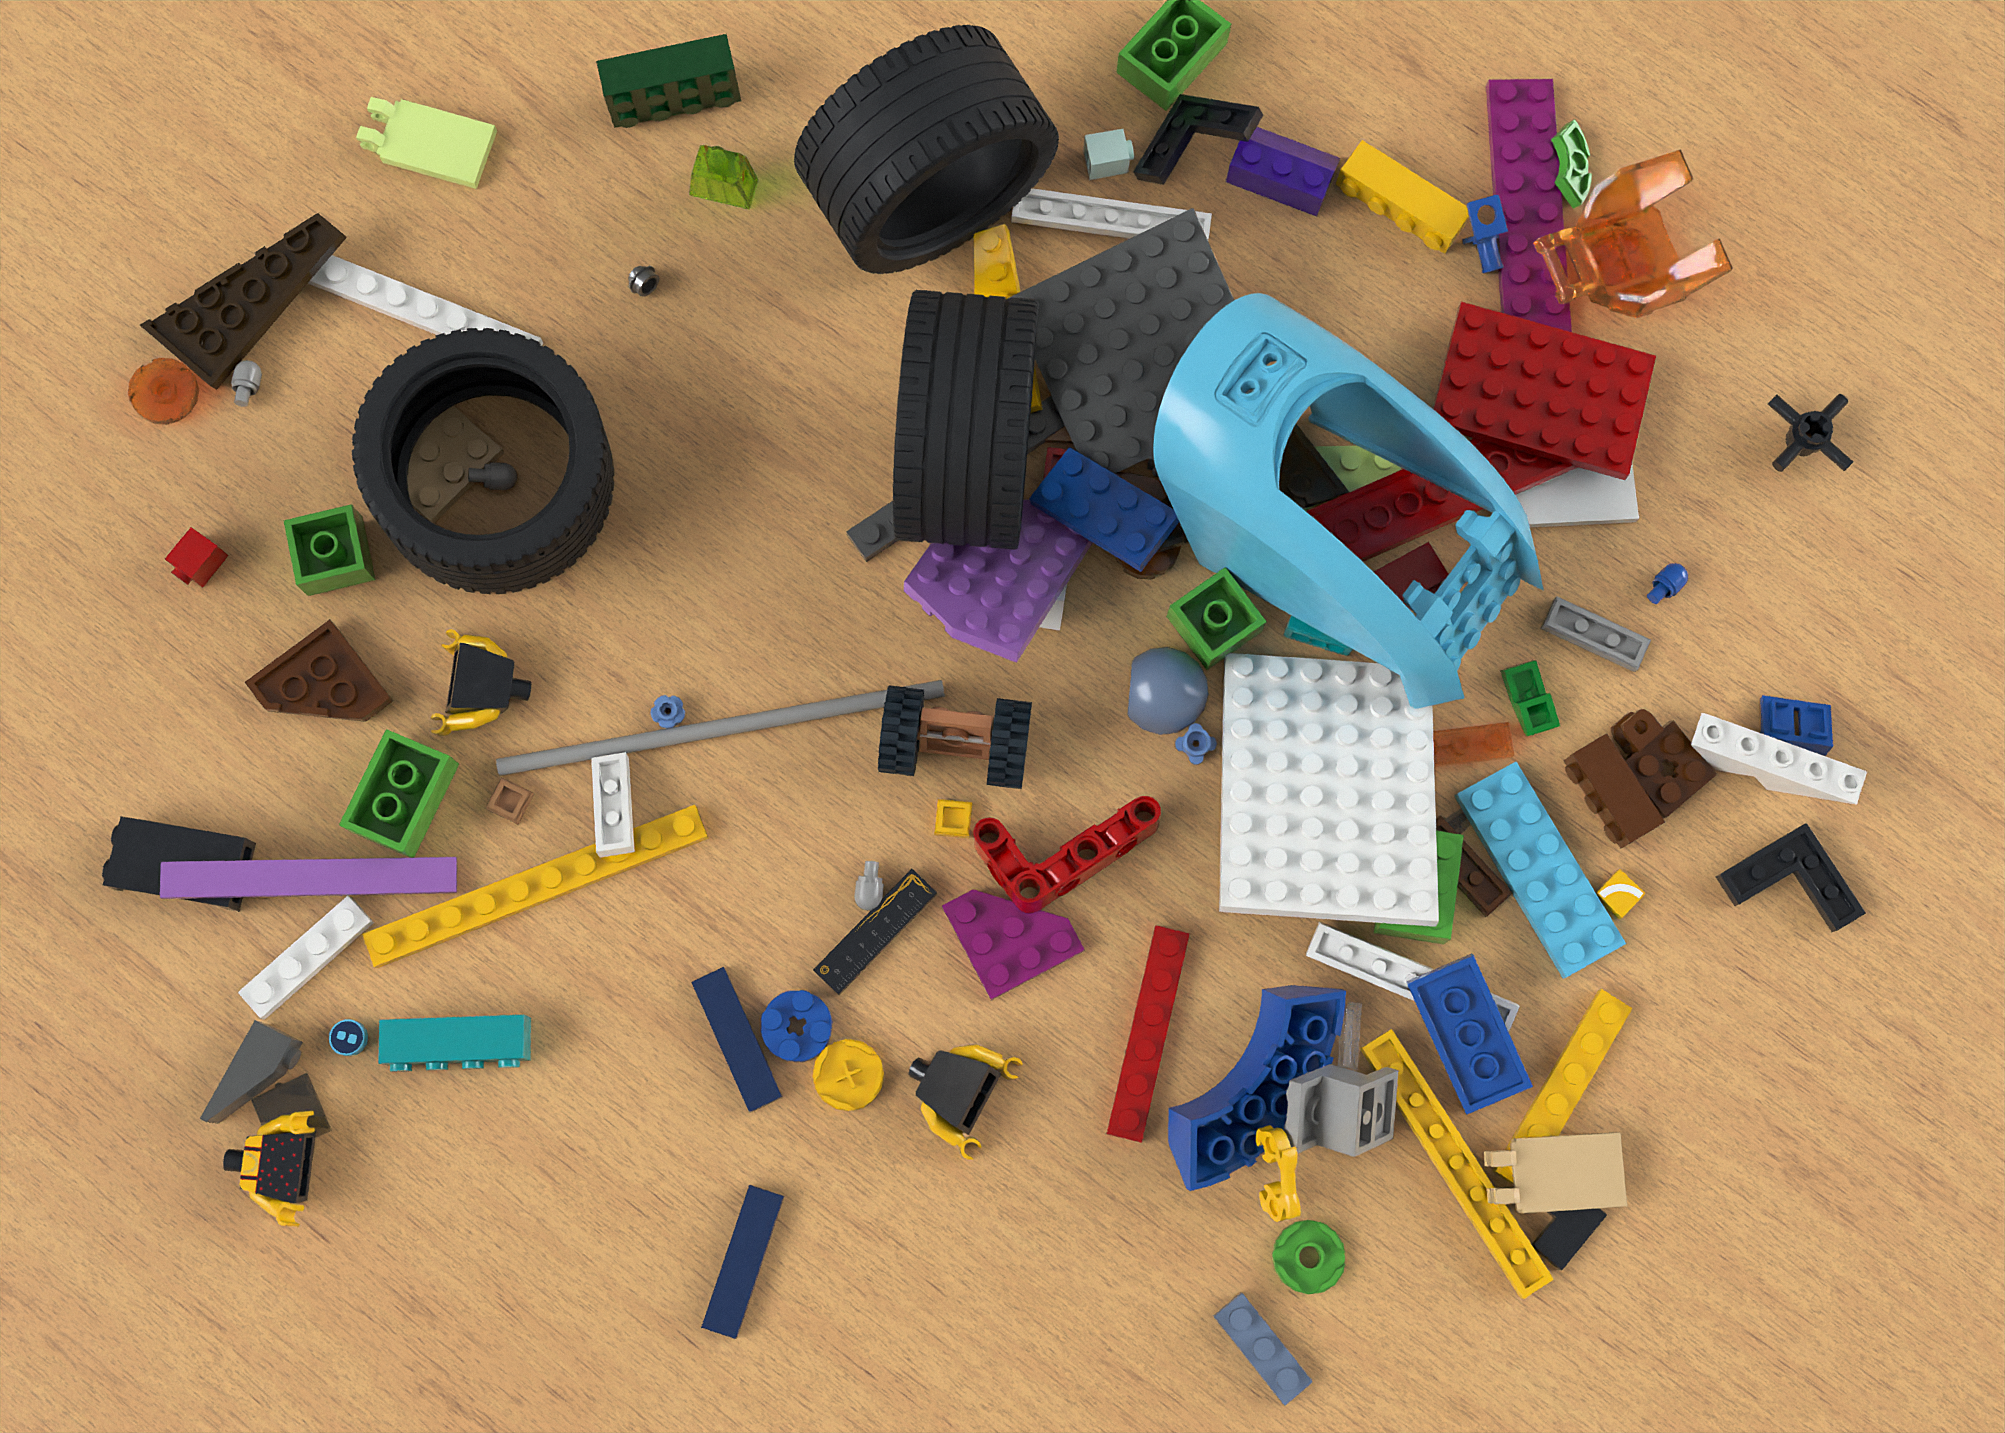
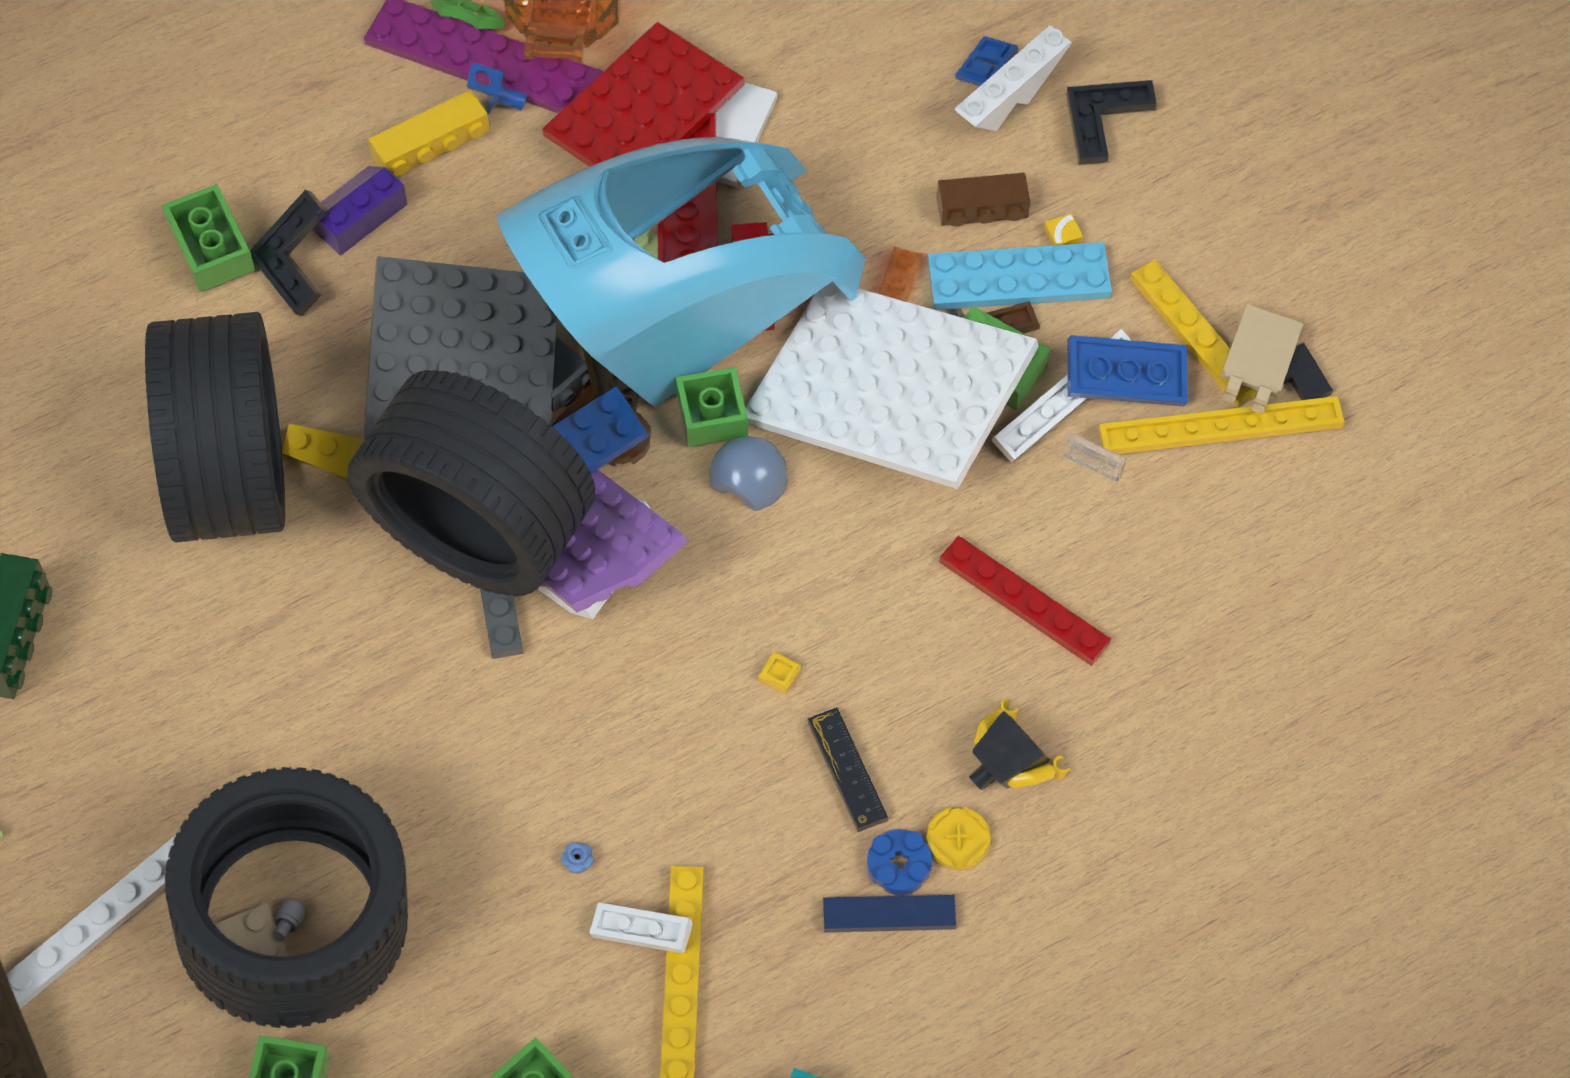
camera: 65 degrees left, 15 degrees down
(478, 684) = (476, 997): black torso -> none
(509, 801) = (592, 1020): medium nougat tile -> none
(643, 280) = (174, 726): flat silver plate -> none
(705, 730) = (611, 827): light grey piece -> none
(720, 176) = (117, 623): clear neon green torso -> none
(742, 1262) = (1079, 981): dark blue tile -> none
(869, 887) = (808, 758): light grey cylinder -> none
(954, 734) = (734, 599): black plate -> none
(1007, 943) = (900, 671): magenta plate -> none
(1065, 868) = (849, 637): red beam -> none
(1094, 214) = (325, 347): white plate -> none
(1107, 153) = (276, 323): light aqua brick -> none
(1195, 733) = (804, 460): medium blue plate -> none
(1262, 1348) = (1308, 620): sand blue plate -> none
(1279, 1197) = (1196, 559): yellow helmet -> none
(1290, 1039) = (1105, 527): blue brick -> none
(1307, 634) = (760, 345): teal plate -> none
(1330, 1261) = (1250, 575): bright green tile -> none
(1341, 1109) = (1148, 479): light grey bracket -> none
(1529, 699) = (882, 226): green slope -> none
(1595, 634) = (853, 161): light grey tile -> none
(1648, 747) = (961, 152): reddish brown plate -> none
(1668, 582) = (837, 95): blue cylinder -> none

